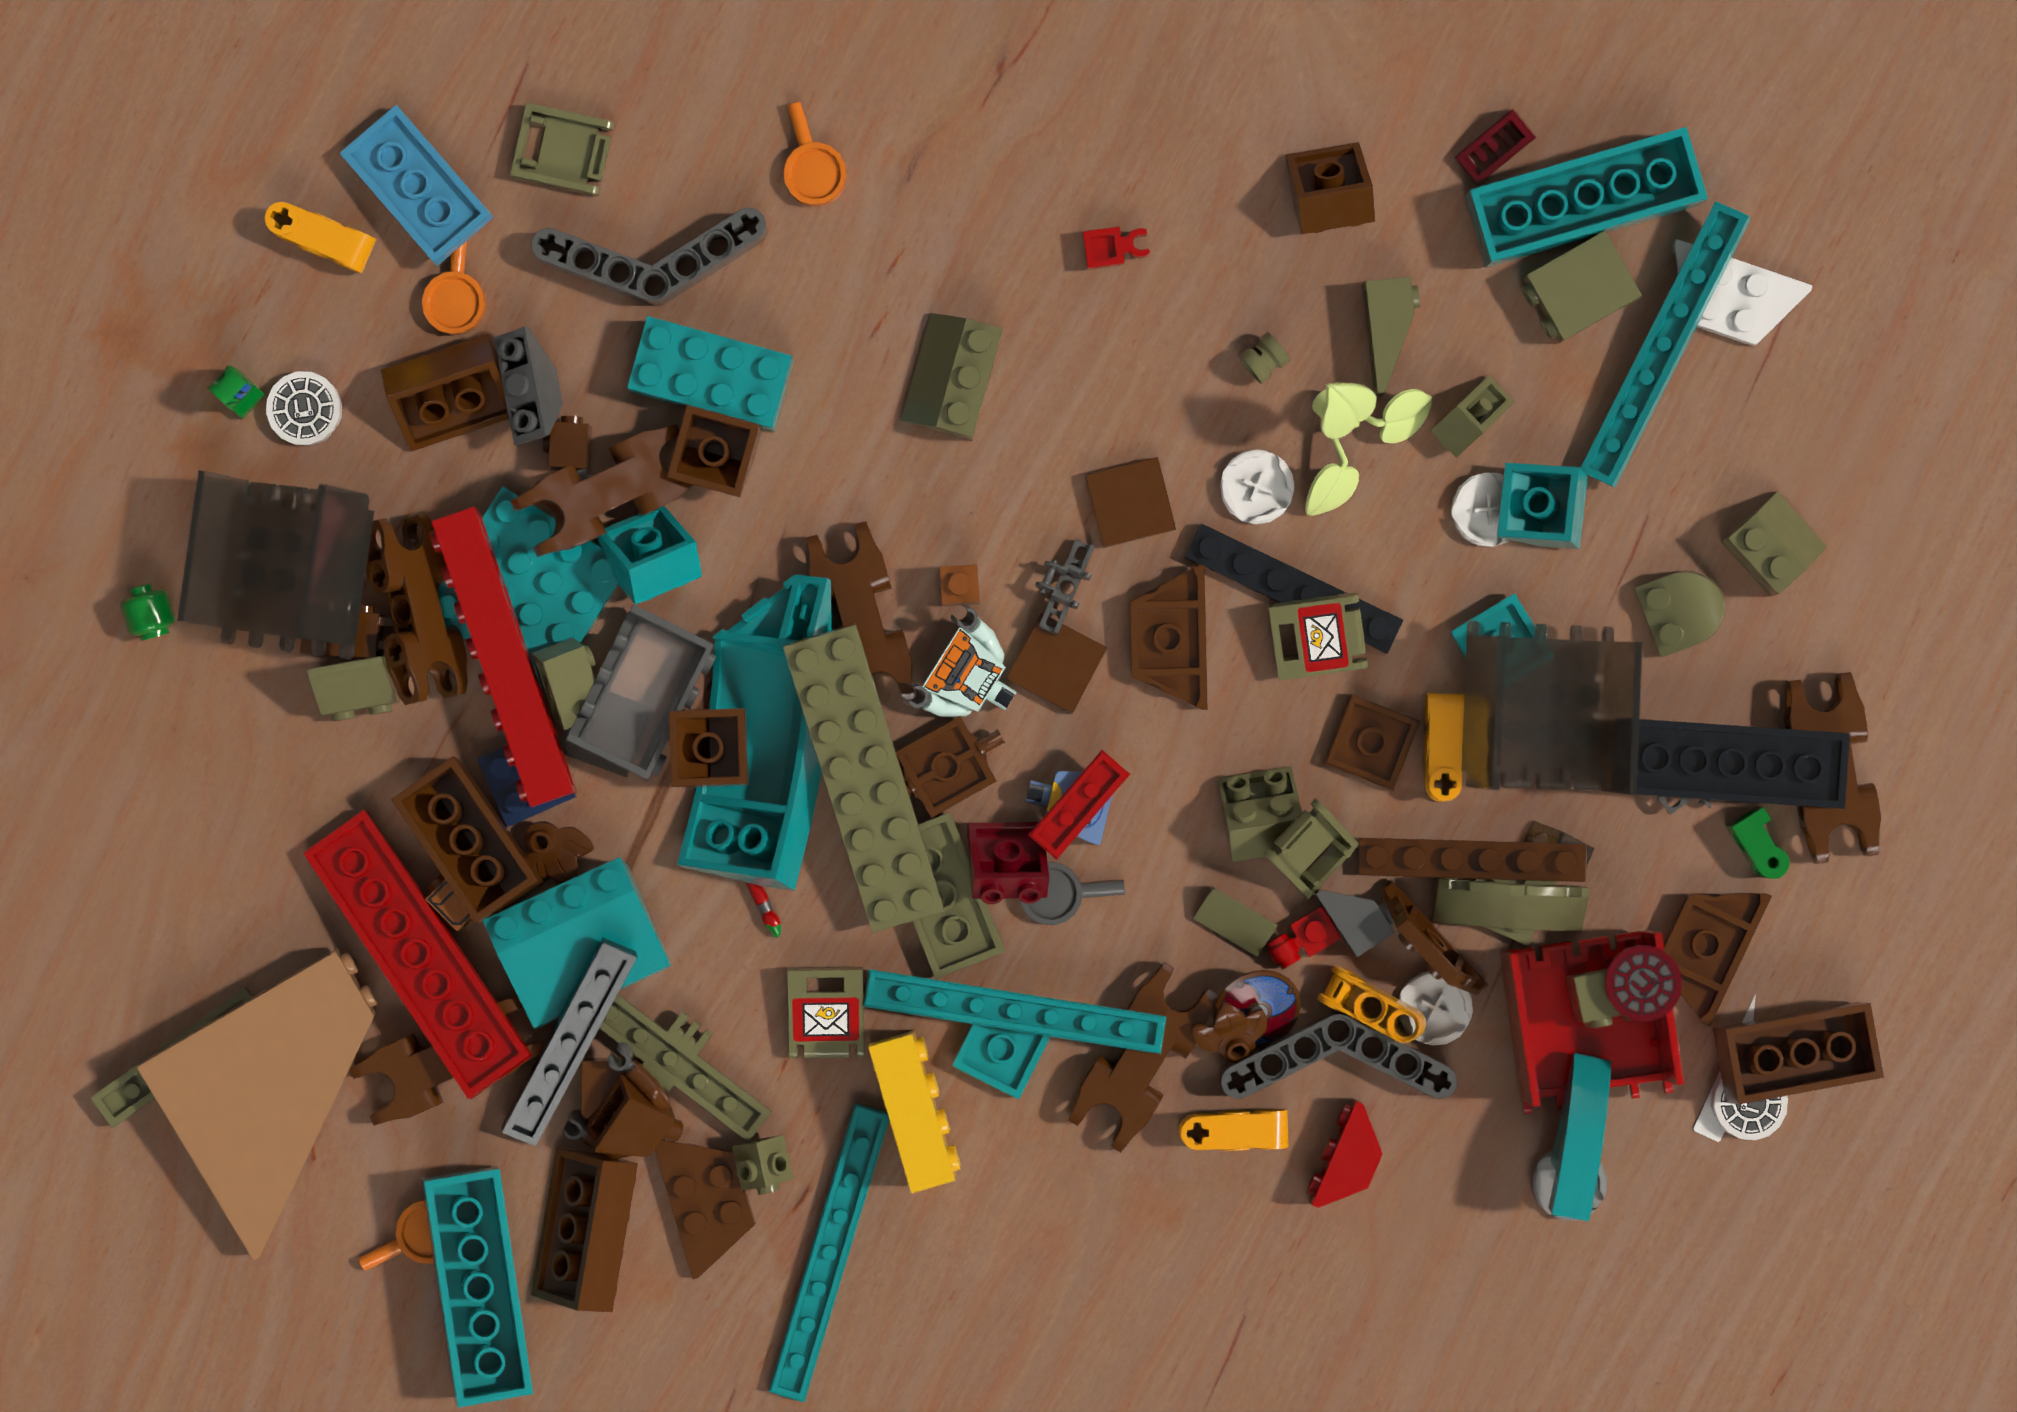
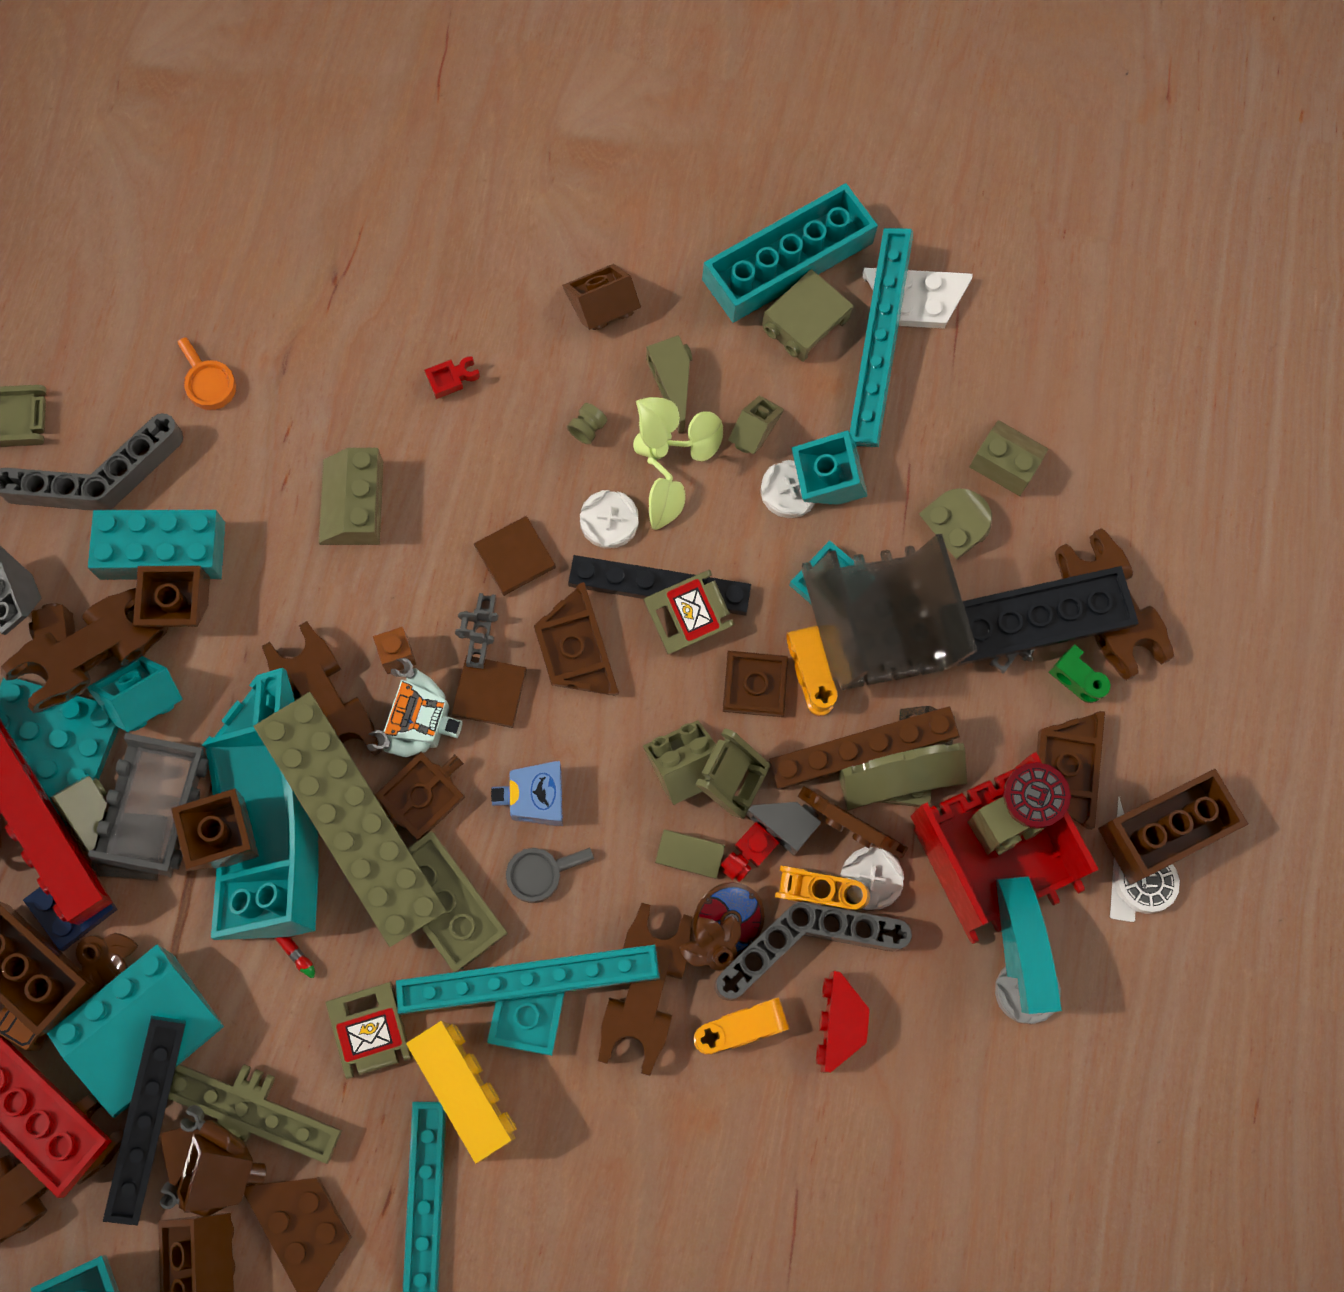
camera: 20 degrees left, 15 degrees down
(762, 1164) = (342, 1179): olive brick -> none
(1006, 862) = (489, 856): dark red plate -> none
(1079, 804) = (534, 791): red tile -> none
(1518, 124) = (724, 221): dark red slope -> none

